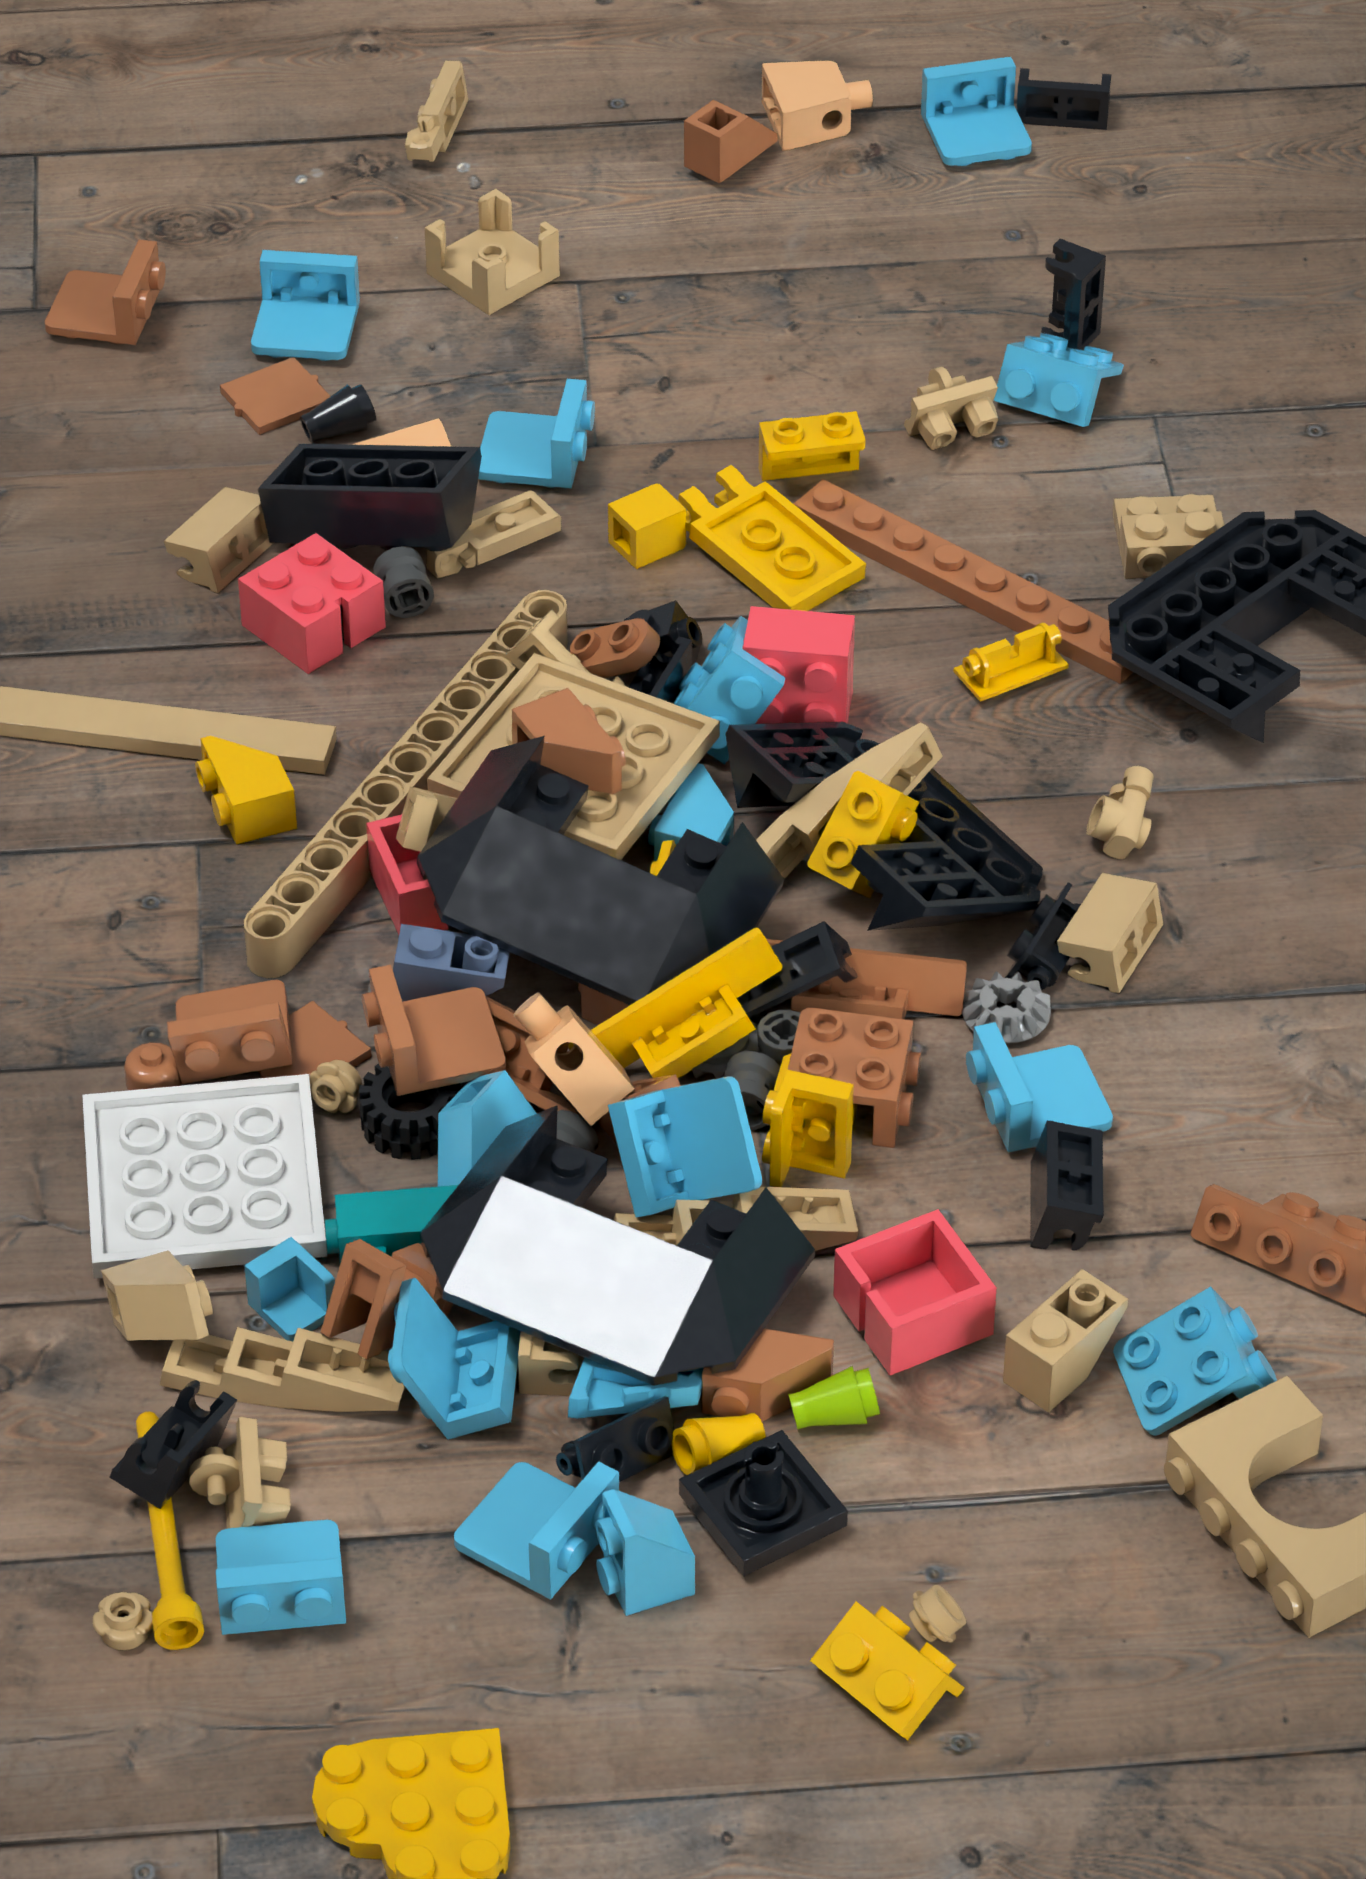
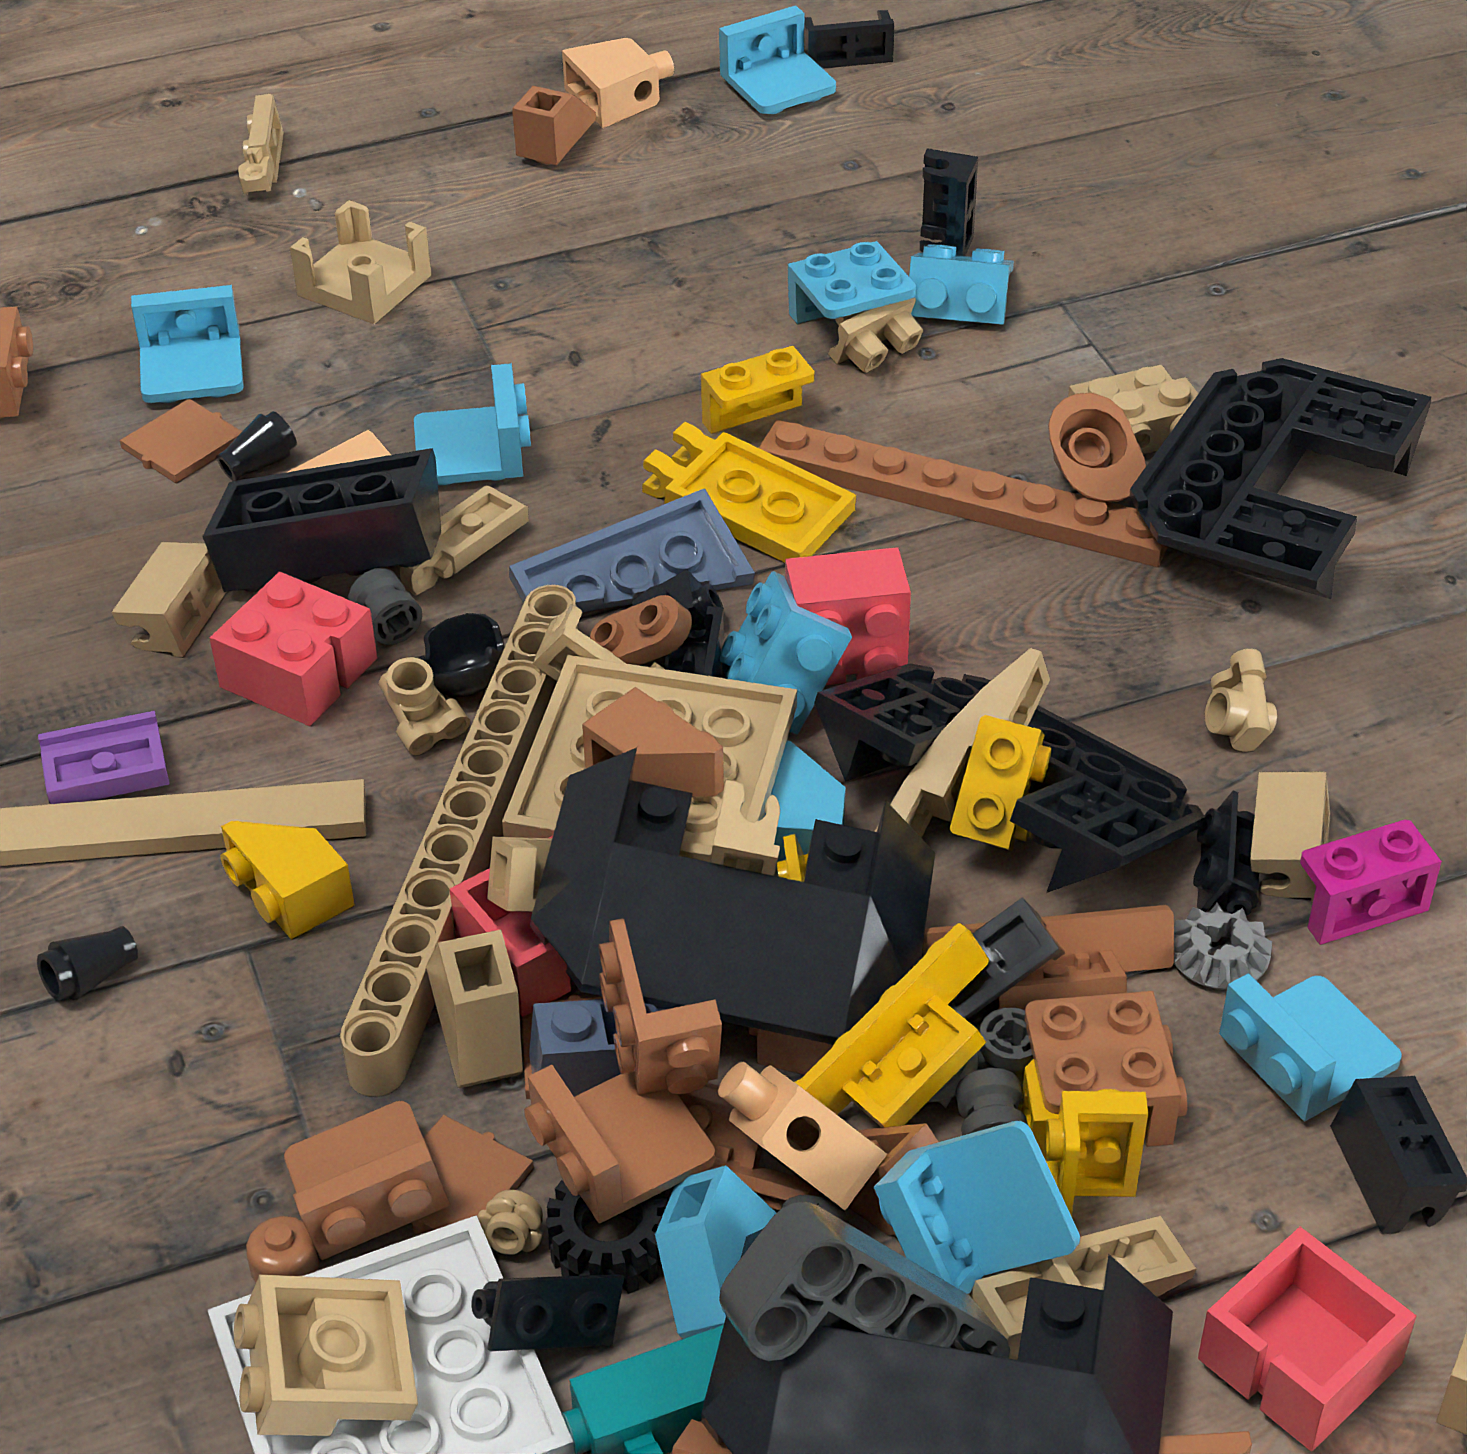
camera: 15 degrees left, 0 degrees up
(61, 825) = (83, 962): none -> black cone
(123, 665) = (103, 759): none -> medium lavender plate
(157, 1135) = (324, 1353): none -> tan plate
(340, 1149) = (549, 1311): none -> black hinge
(359, 918) = (477, 1007): none -> tan slope
(403, 674) = (420, 707): none -> tan plate
(452, 636) = (463, 653): none -> black hair
(483, 967) = (662, 1048): none -> nougat bracket
(535, 1147) = (820, 1264): none -> dark grey beam
(602, 827) = (745, 842): none -> tan hinge
(643, 577) = (640, 553): none -> sand blue wing
(647, 525) = (617, 492): yellow panel -> none
(939, 357) = (846, 283): none -> medium azure bracket
(1004, 667) = (1049, 567): yellow hinge -> none
(1097, 559) = (1095, 447): none -> nougat piece
(1152, 979) = (1369, 880): none -> dark pink bracket

